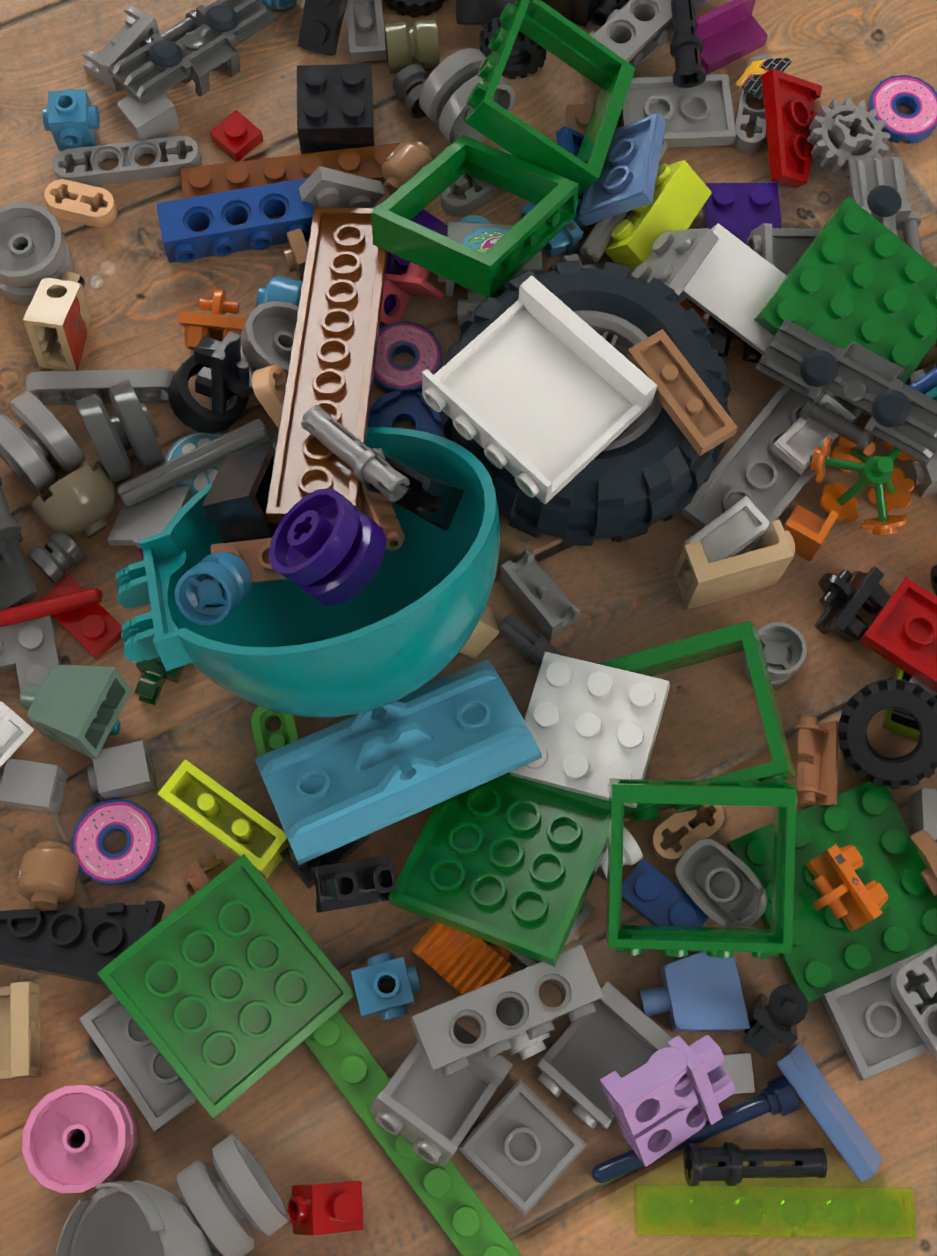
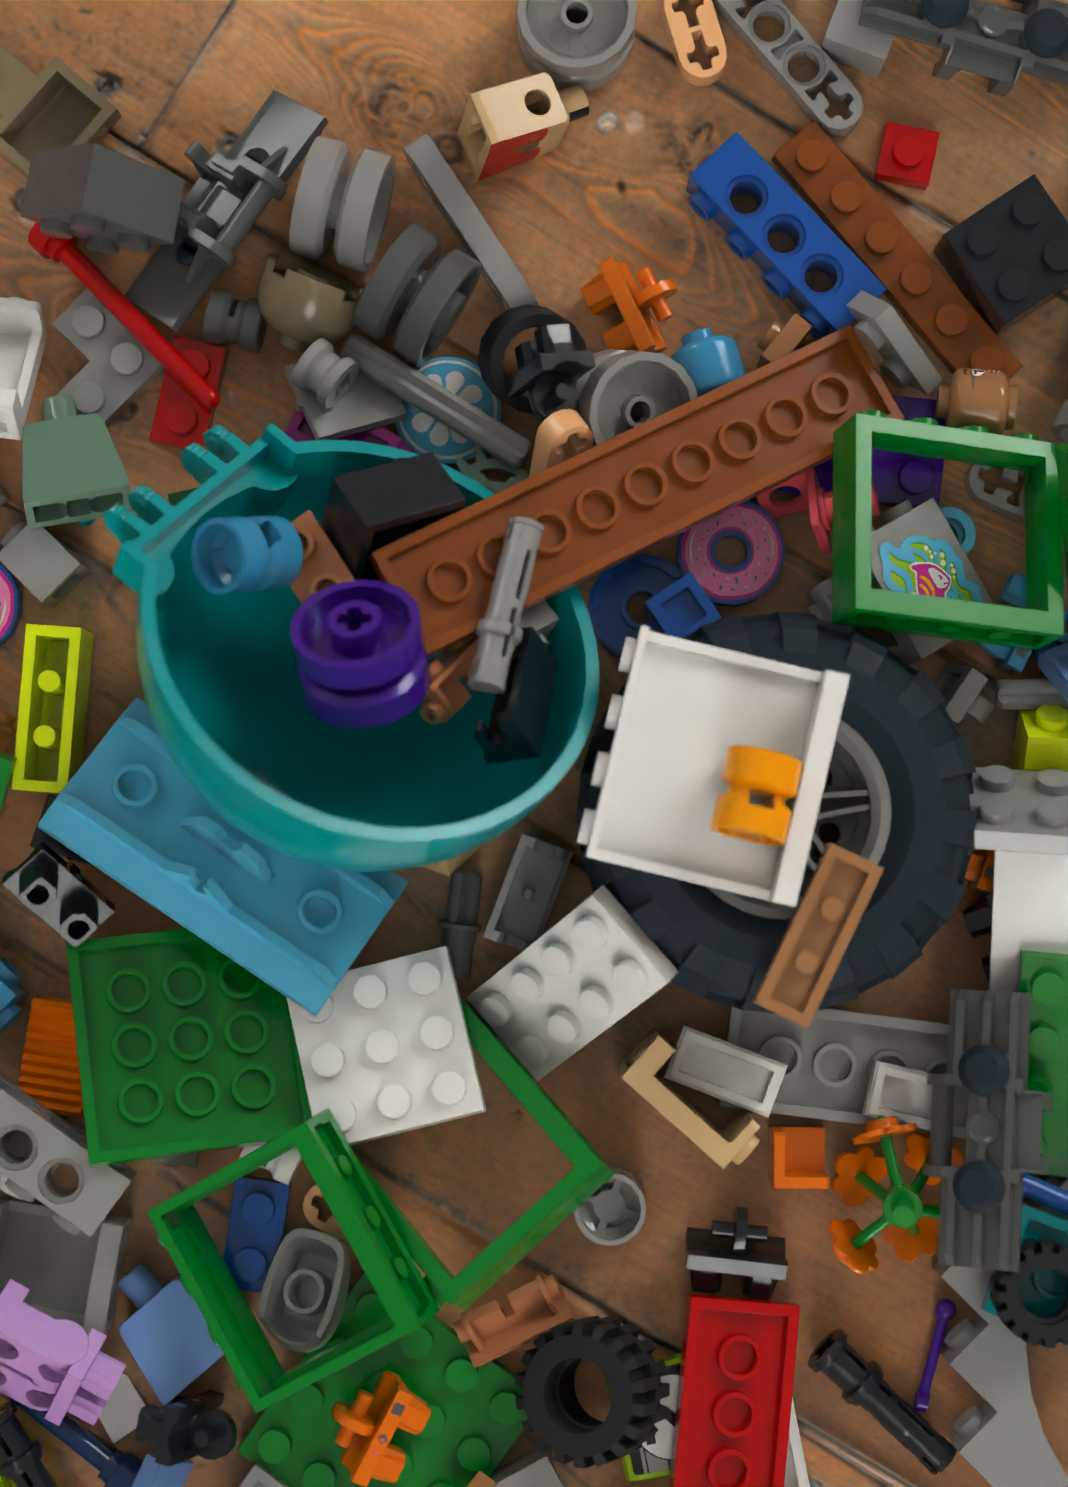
camera: 65 degrees right, 15 degrees up
(129, 511) = (325, 373): none -> light grey wheel
(415, 407) = (680, 608): none -> blue panel
(571, 368) = (761, 775): none -> light orange wheel
(617, 580) = (572, 983): none -> white plate

